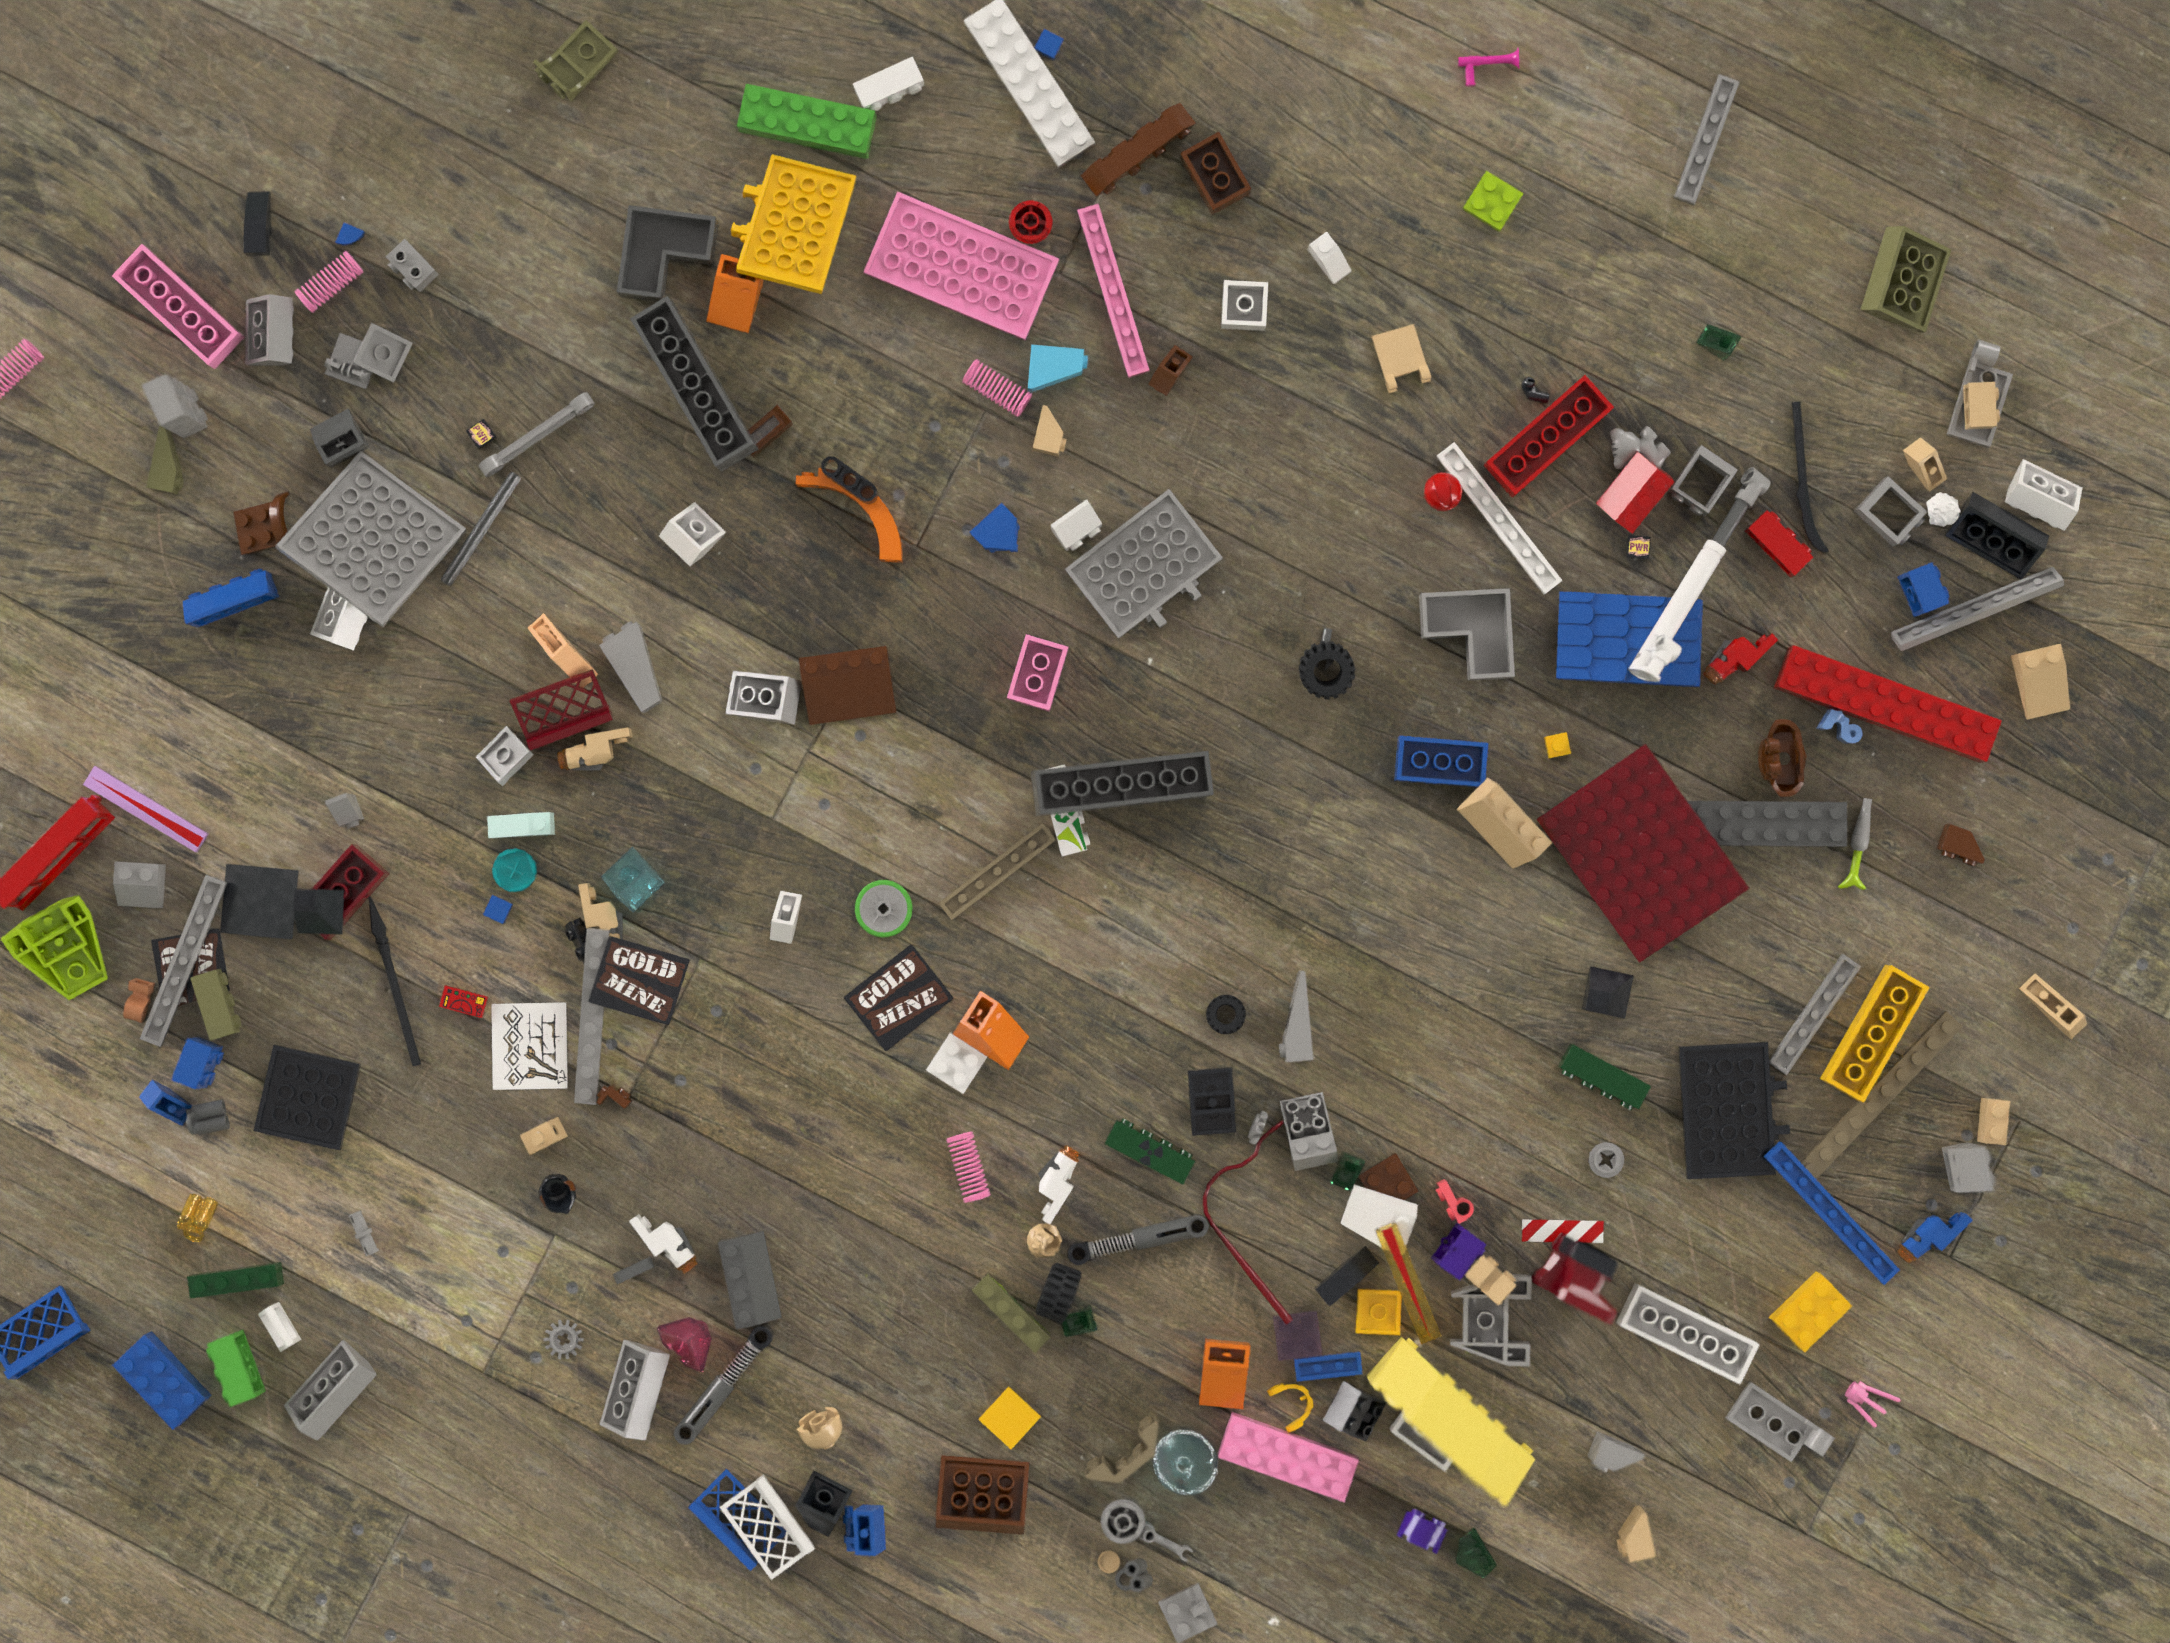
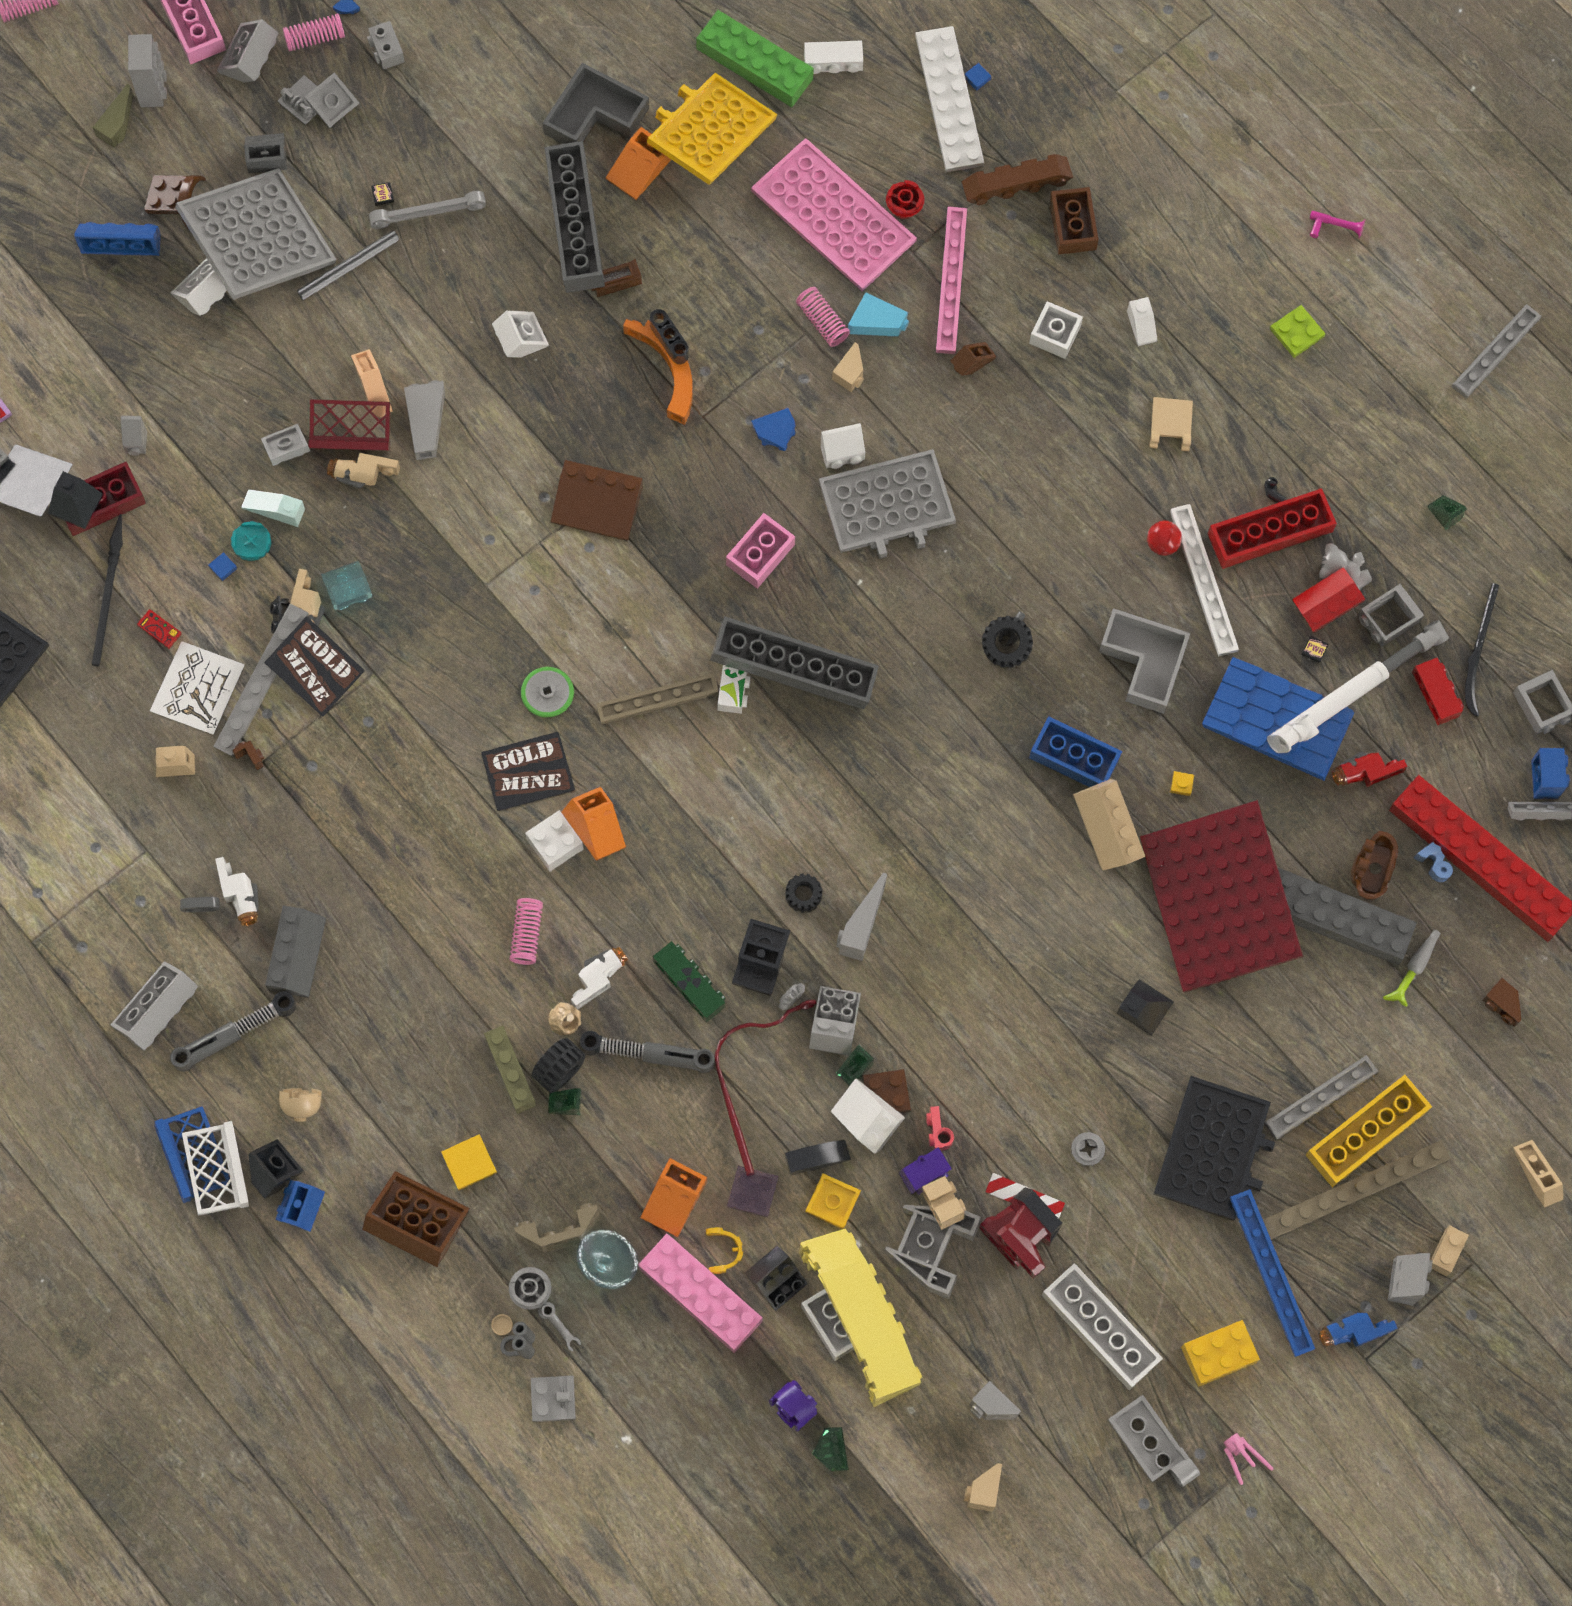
camera: 15 degrees right, 15 degrees down
(555, 1342) = (104, 940): light grey gear -> none
(557, 1193) = (164, 813): black hair -> none
(688, 1339) = (220, 982): clear pink slope -> none
(764, 697) = (522, 483): light grey slope -> none
(785, 917) = (460, 665): white slope -> none
(1328, 1366) = (768, 1229): blue plate -> none
(1408, 1282) = (869, 1179): clear yellow tile -> none
(1603, 1076) = (1113, 1075): dark green brick -> none

